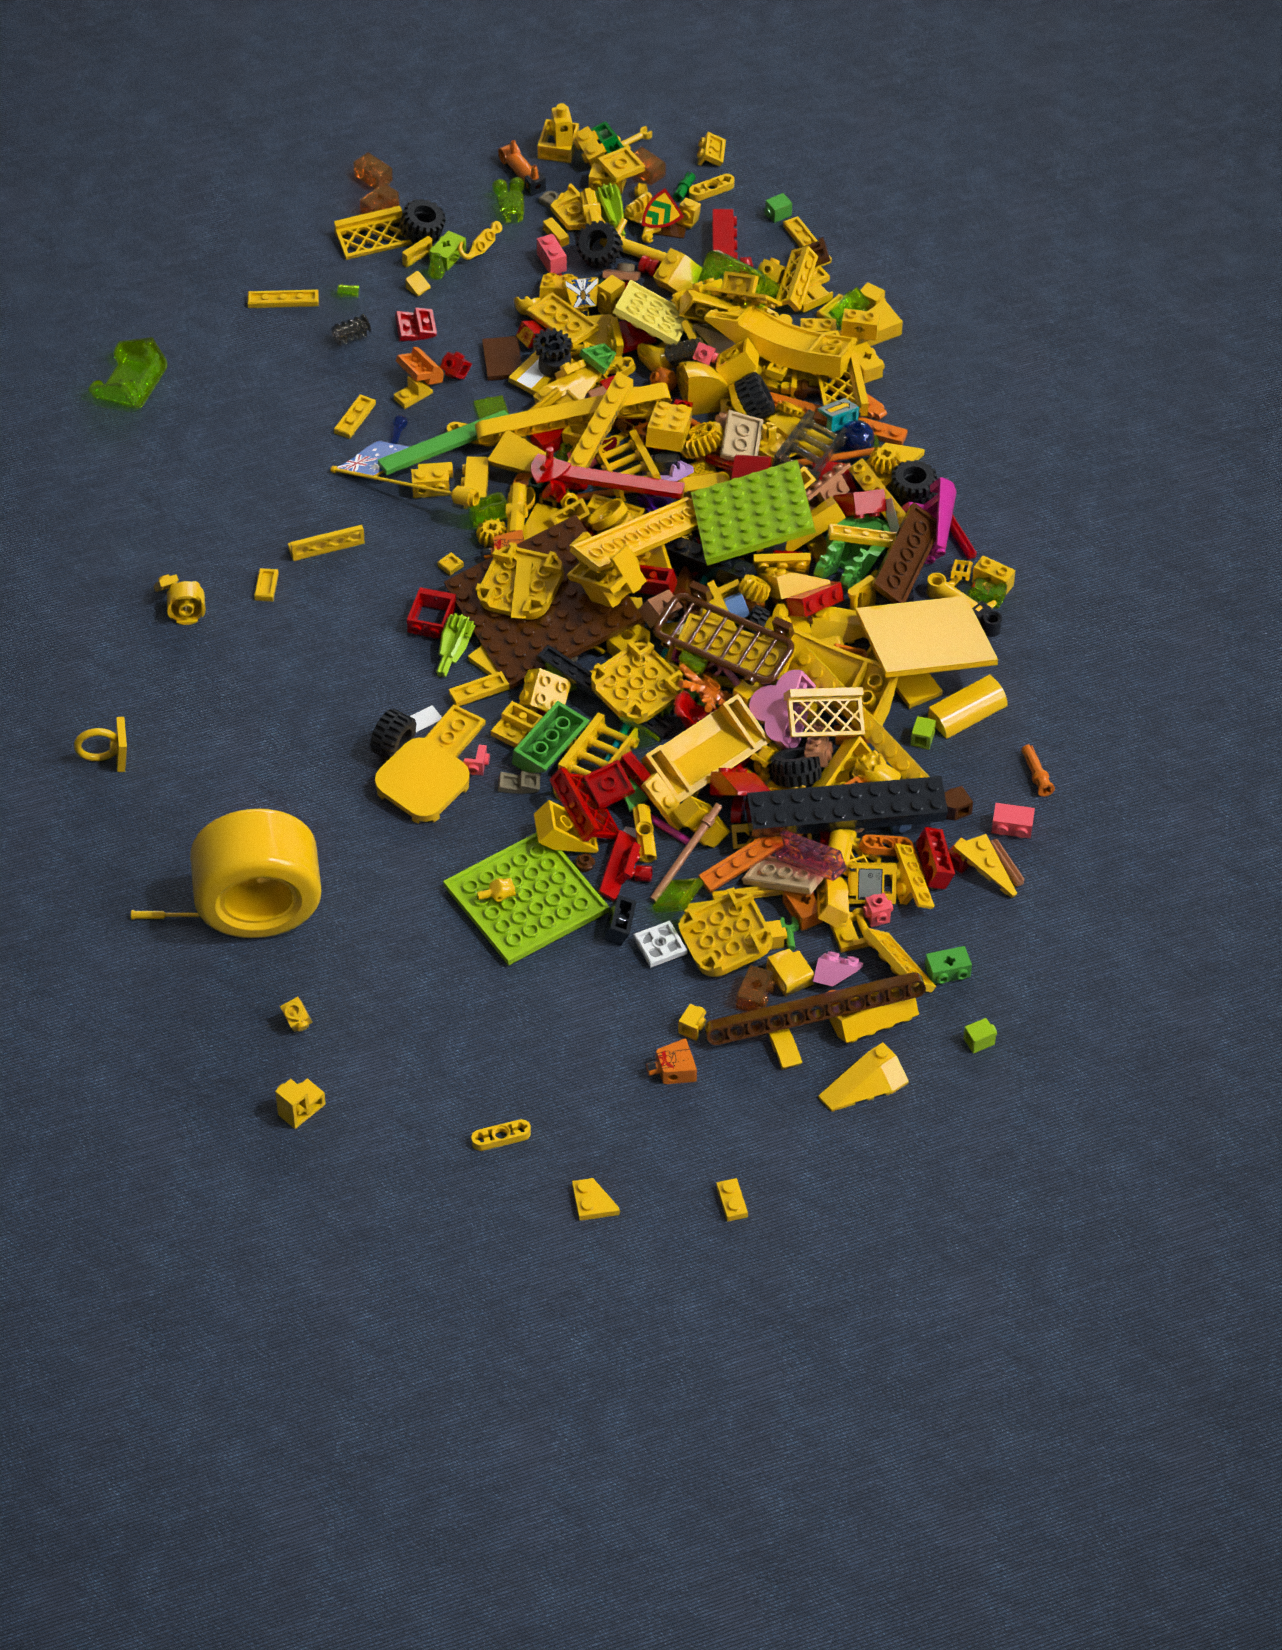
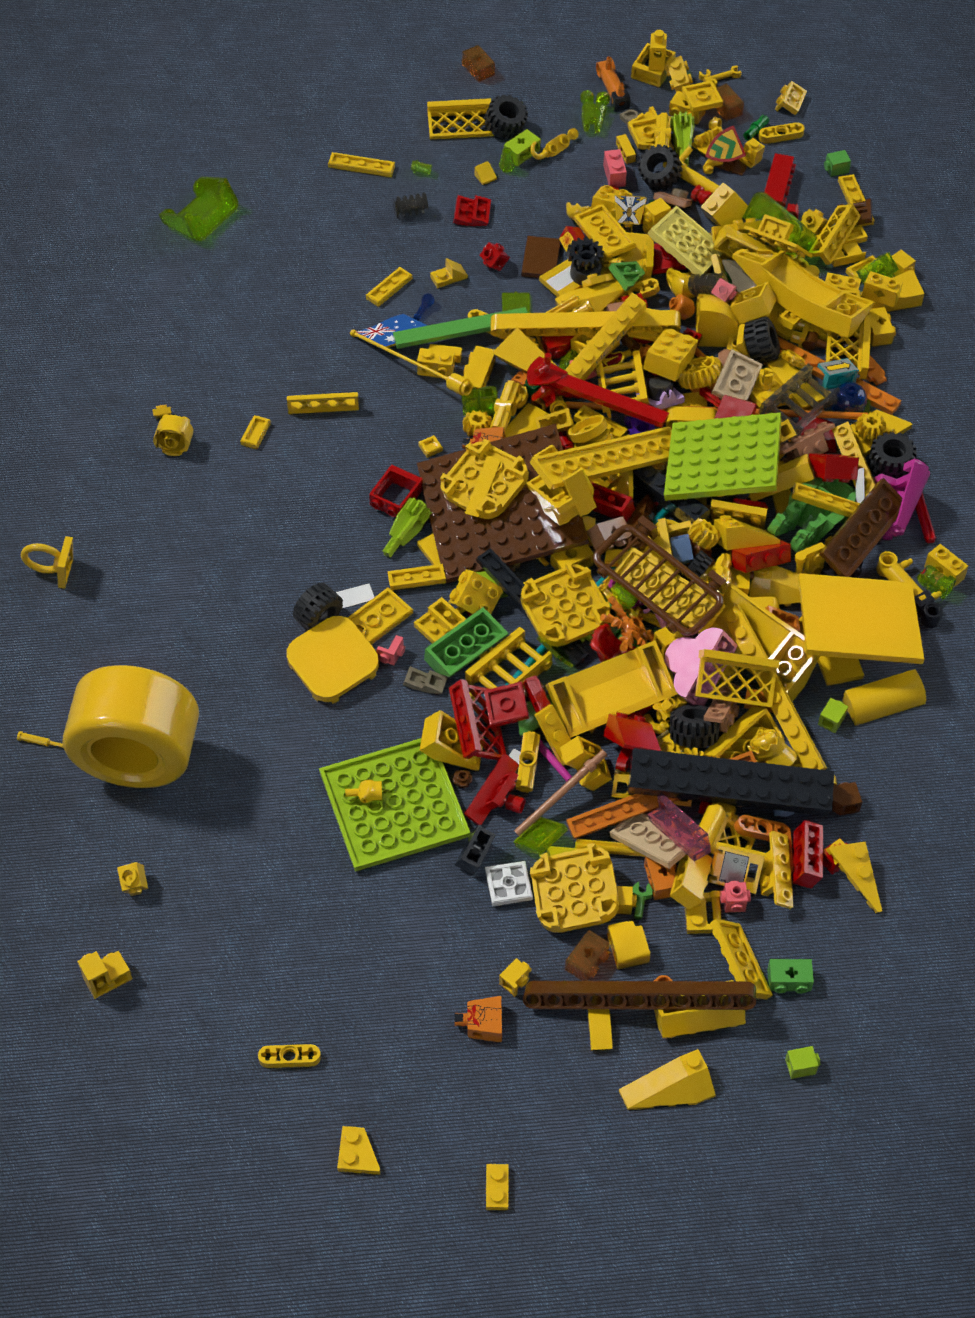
camera: 15 degrees right, 5 degrees up
(379, 199) = (476, 89): clear orange brick -> none
(416, 251) = (493, 143): yellow tile -> none
(420, 366) = (461, 251): orange brick -> none
(607, 137) = (697, 69): green slope -> none
(833, 969) = (675, 952): bright pink slope -> none
(961, 573) = (919, 560): yellow tile -> none
(1010, 868) = (880, 874): nougat axle -> none
(1013, 820) = (898, 830): coral brick -> none
(1039, 776) = (938, 787): orange pin -> none

